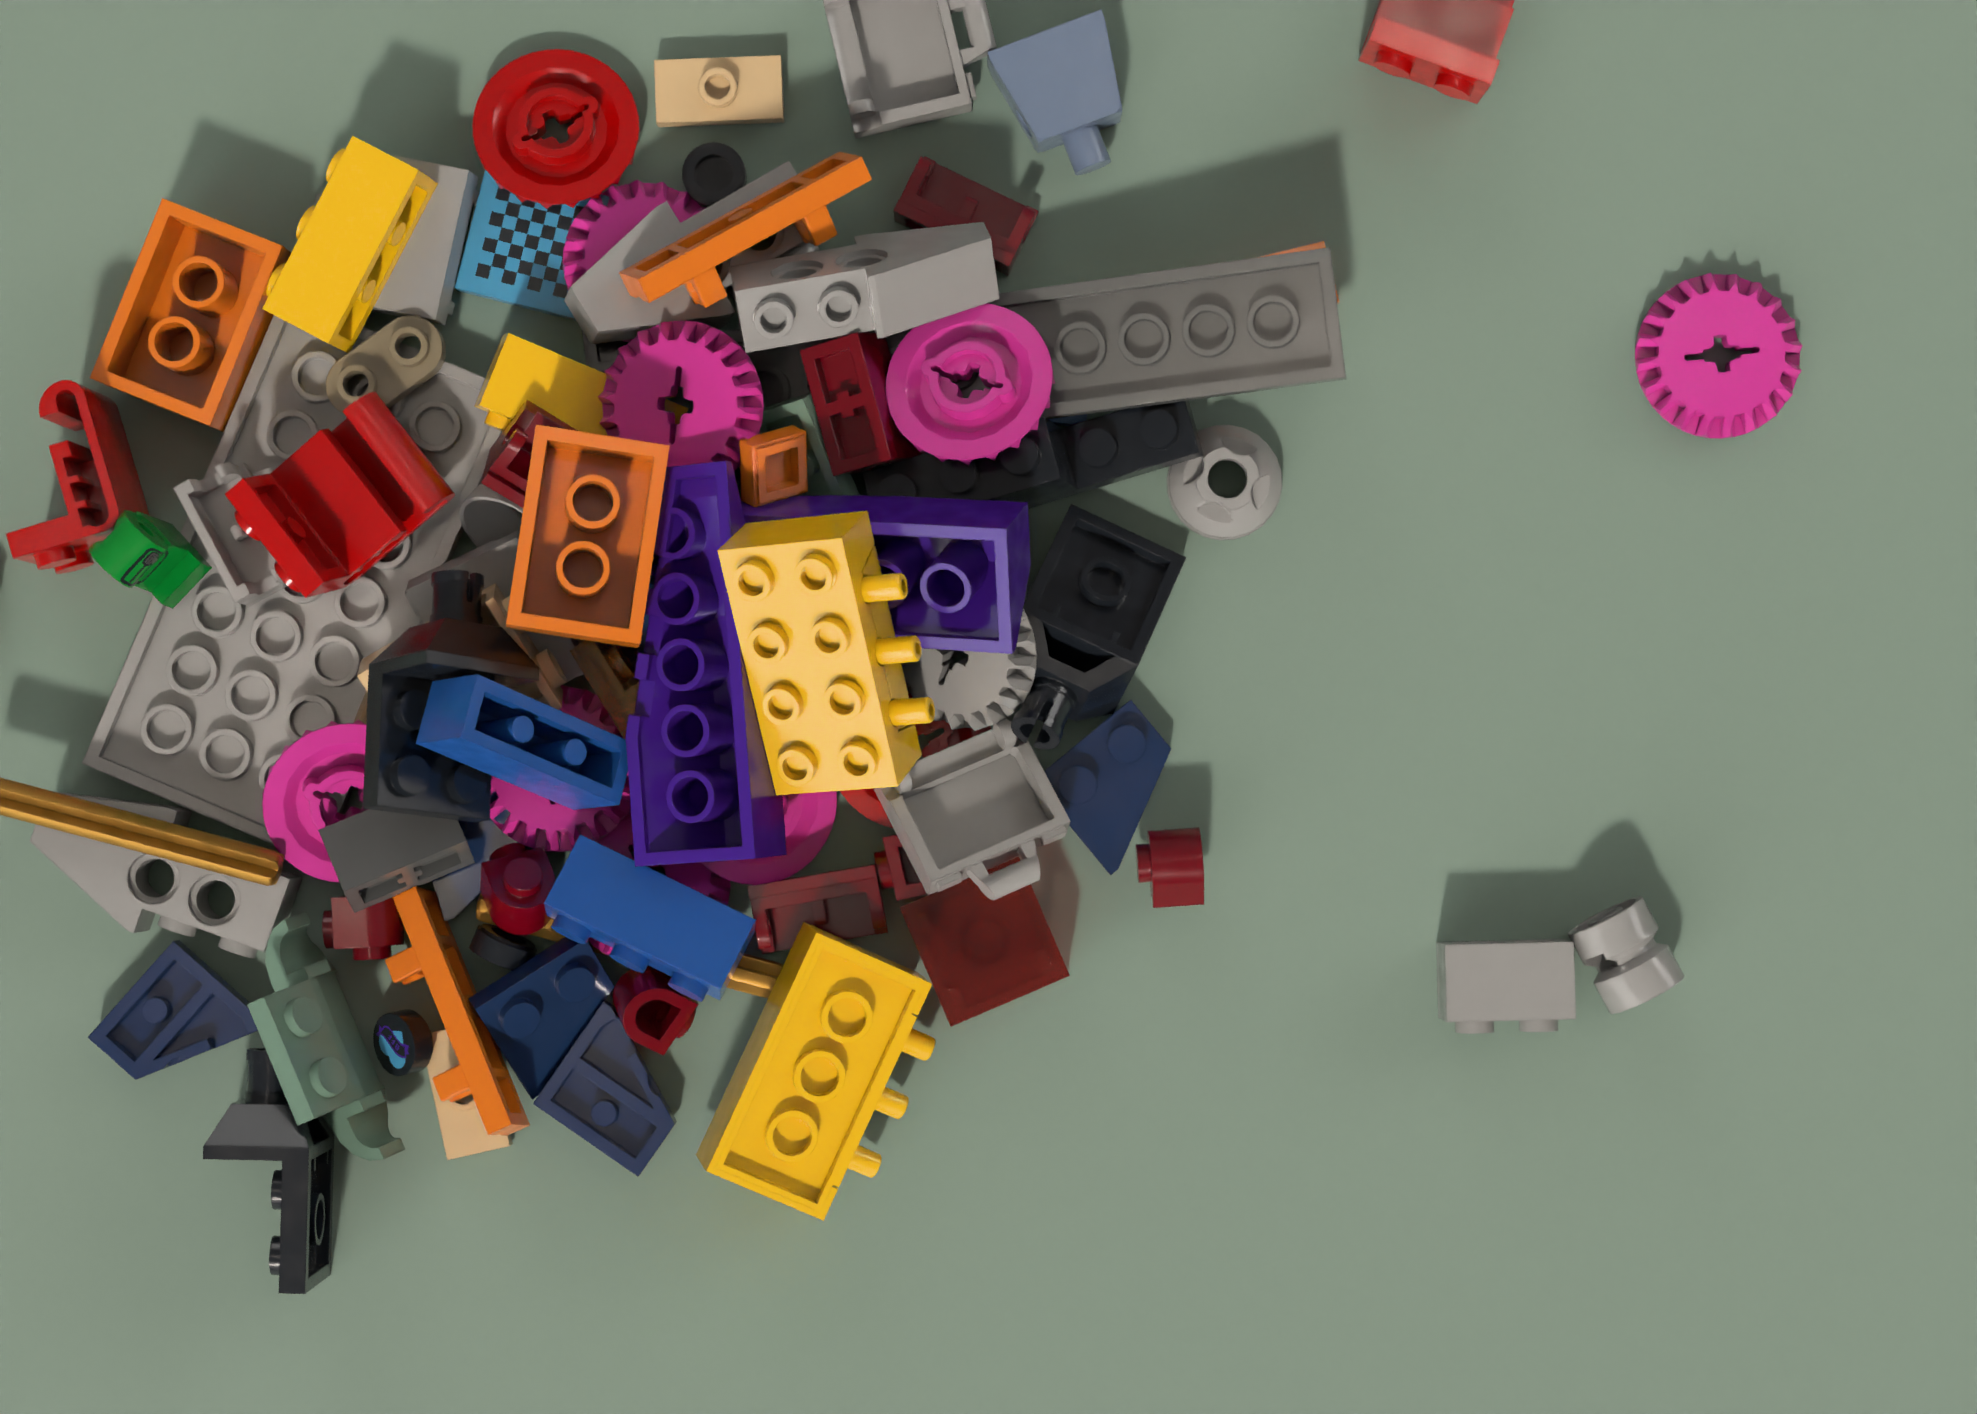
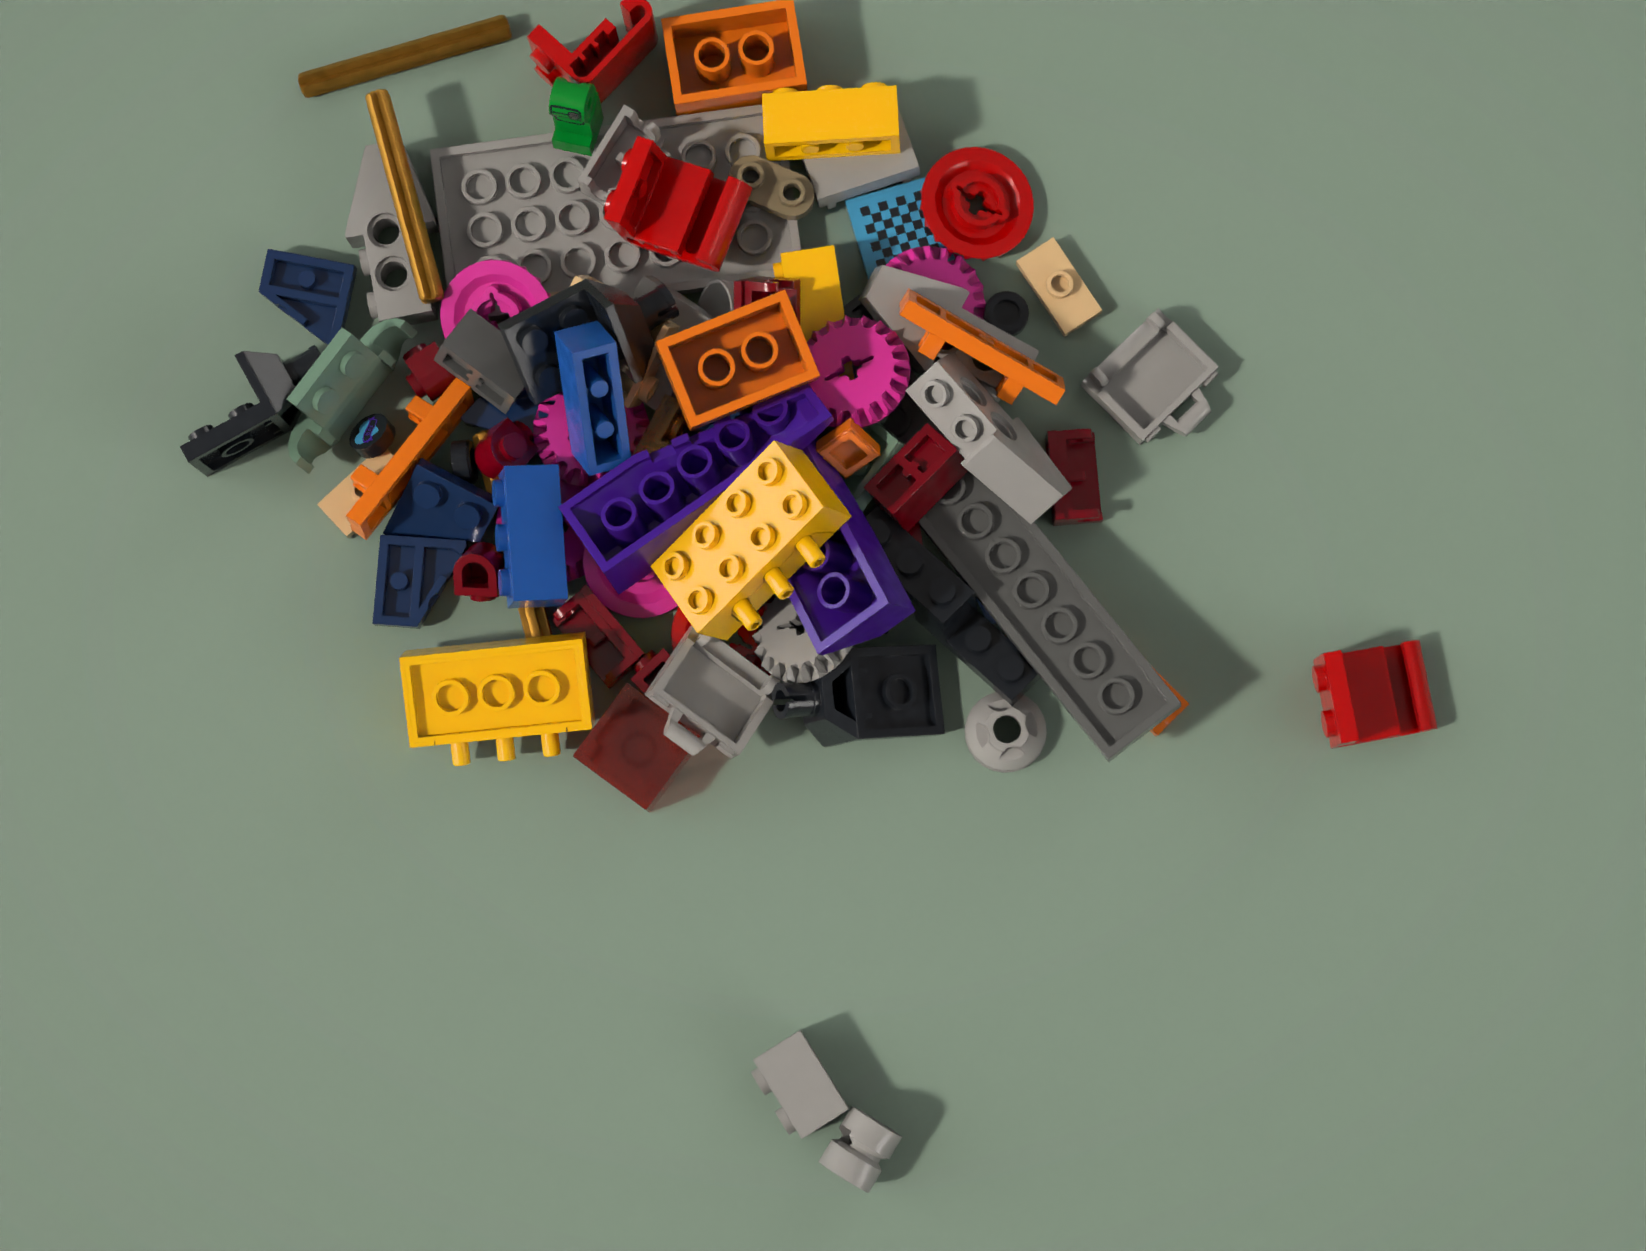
camera: 70 degrees right, 5 degrees down
(981, 340) = (939, 522): dark pink gear -> none
(1062, 88) = (1185, 490): sand blue torso -> none
(1109, 782) = (779, 768): dark blue wing -> none
(1172, 866) = (750, 836): dark red plate -> none
(1693, 391) = (1234, 989): dark pink gear -> none

